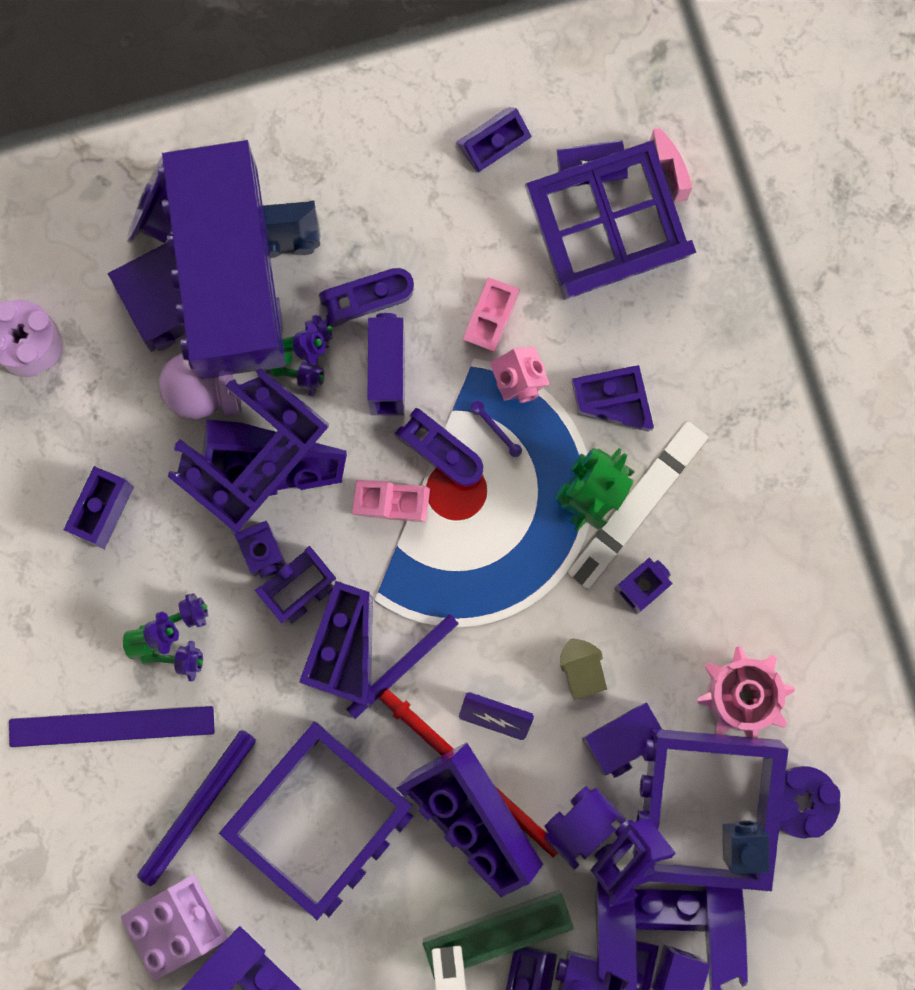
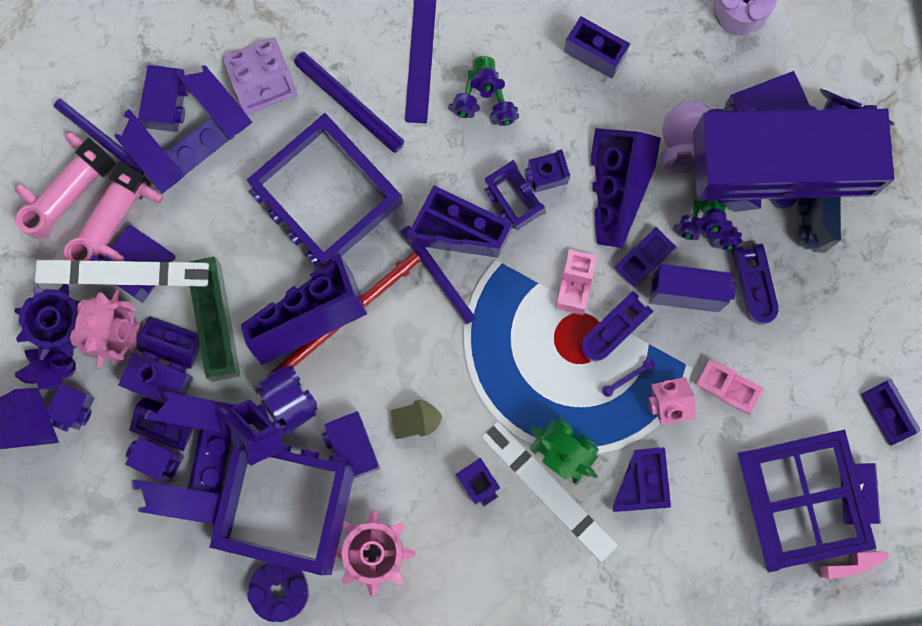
camera: 100 degrees right, 0 degrees up
(239, 499) = (641, 204): dark purple wedge -> none
(352, 424) = (645, 257): none -> dark purple slope
(496, 716) = (387, 344): dark purple slope -> none
(745, 847) = (245, 526): dark blue brick -> none

